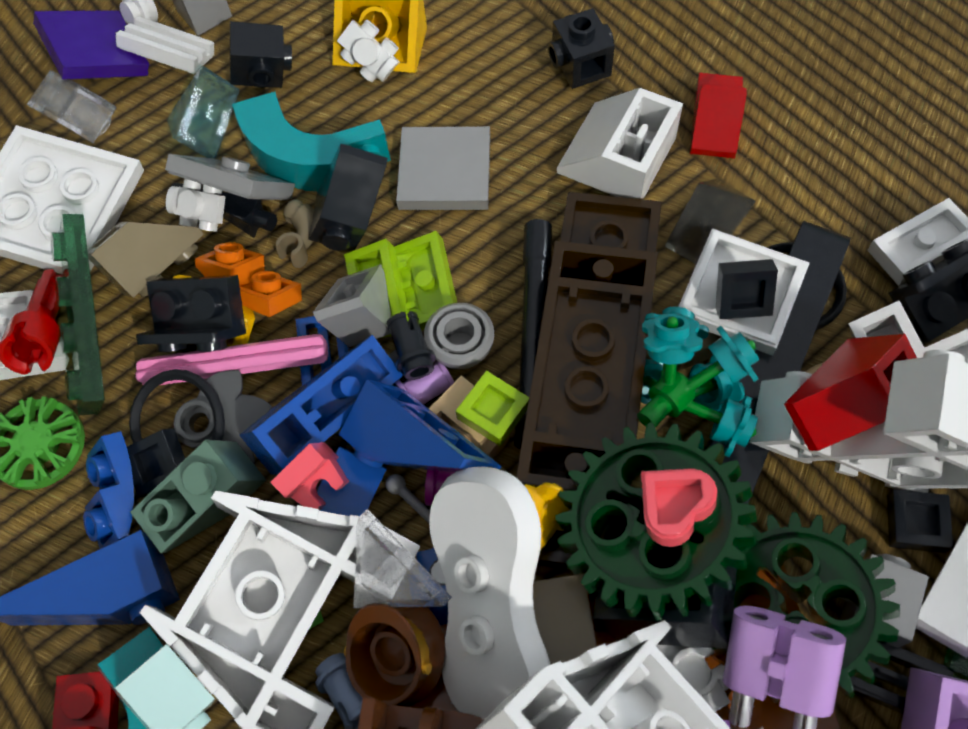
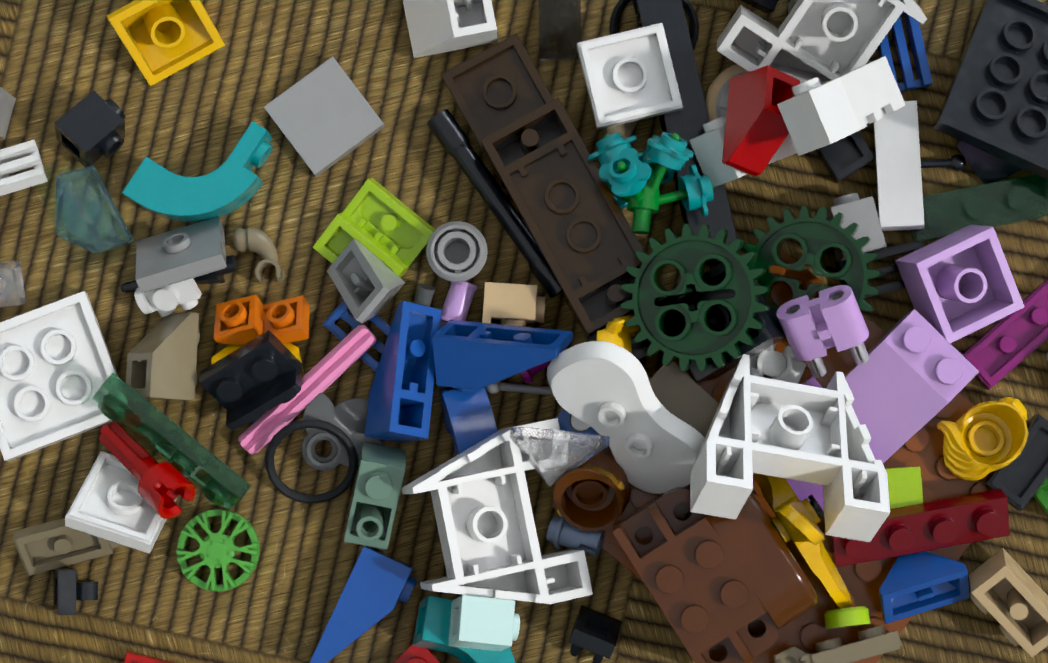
camera: 45 degrees left, 20 degrees up
(108, 512) = (324, 547): blue slope -> none
(154, 459) = (322, 497): black tile -> none
(305, 471) = (443, 421): coral tile -> none
(347, 198) = (288, 210): black slope -> none
(362, 47) = (181, 61): white piece -> none
(414, 356) = (432, 286): black pin -> none
(493, 408) = (527, 290): lime tile -> none
(675, 502) = (706, 285): coral tile -> none
(746, 289) = (637, 83): black tile -> none

